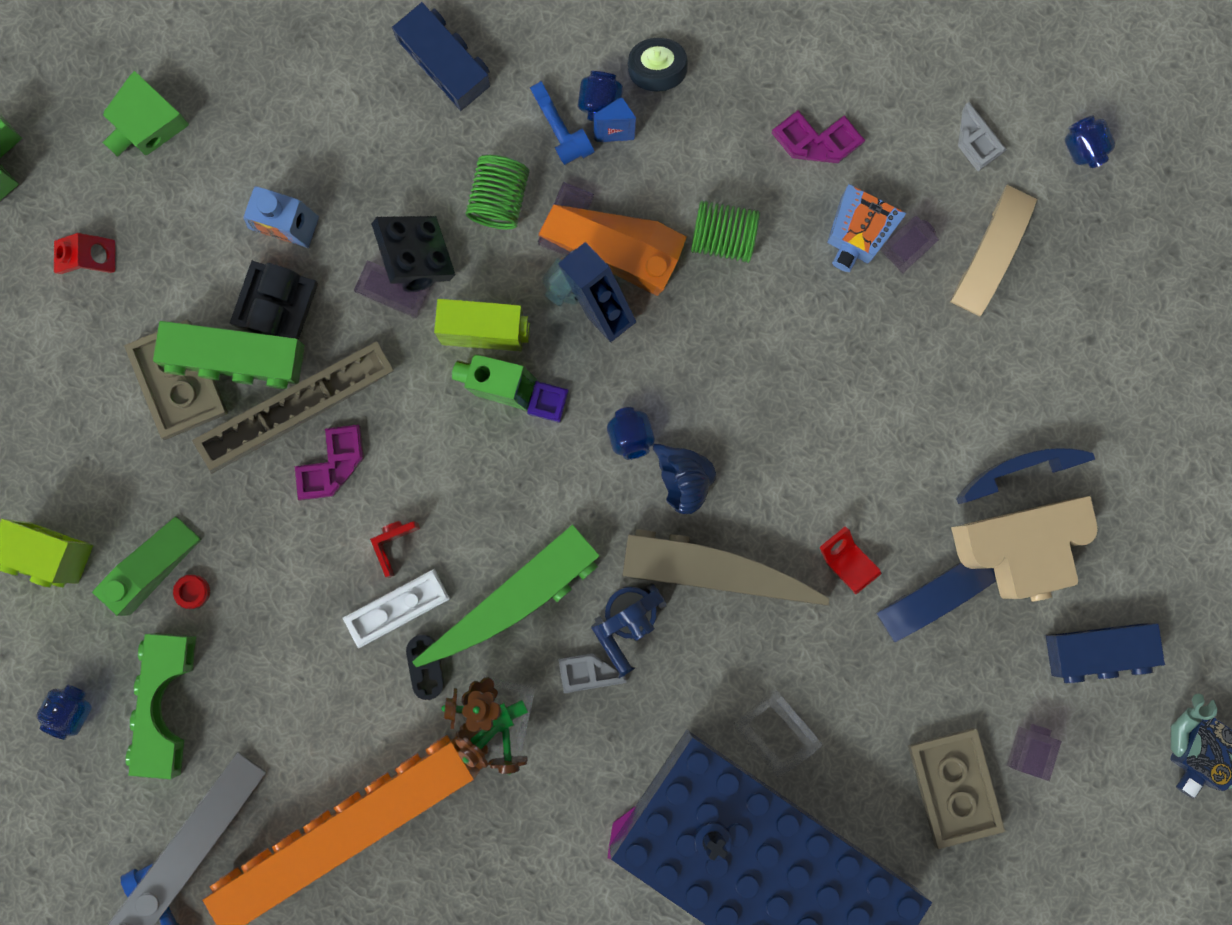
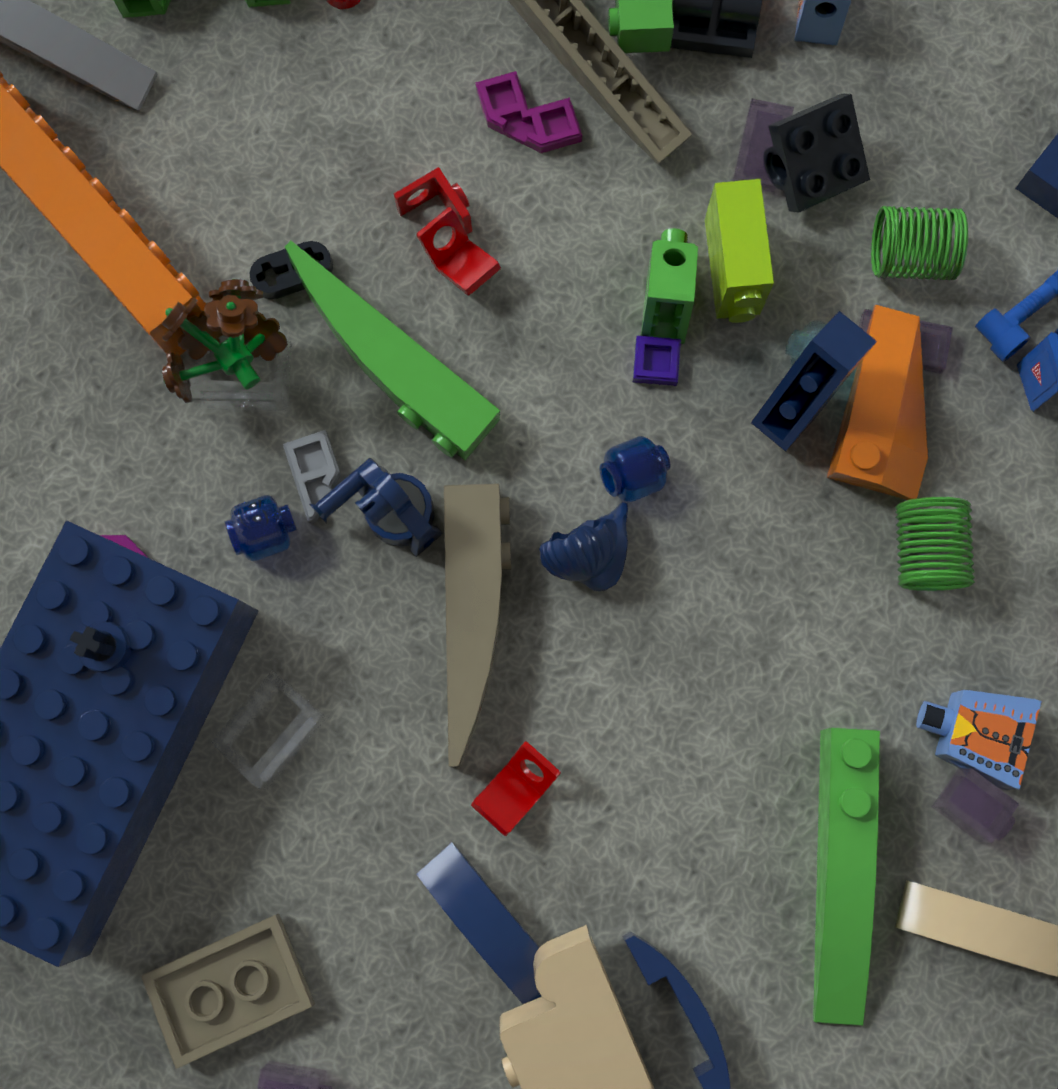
camera: 90 degrees right, 5 degrees down
(396, 608) = (360, 224): white tile -> none
(441, 535) = (460, 259): none -> red bracket
(628, 718) = (260, 528): none -> clear blue head
(938, 341) = (845, 872): none -> bright green slope

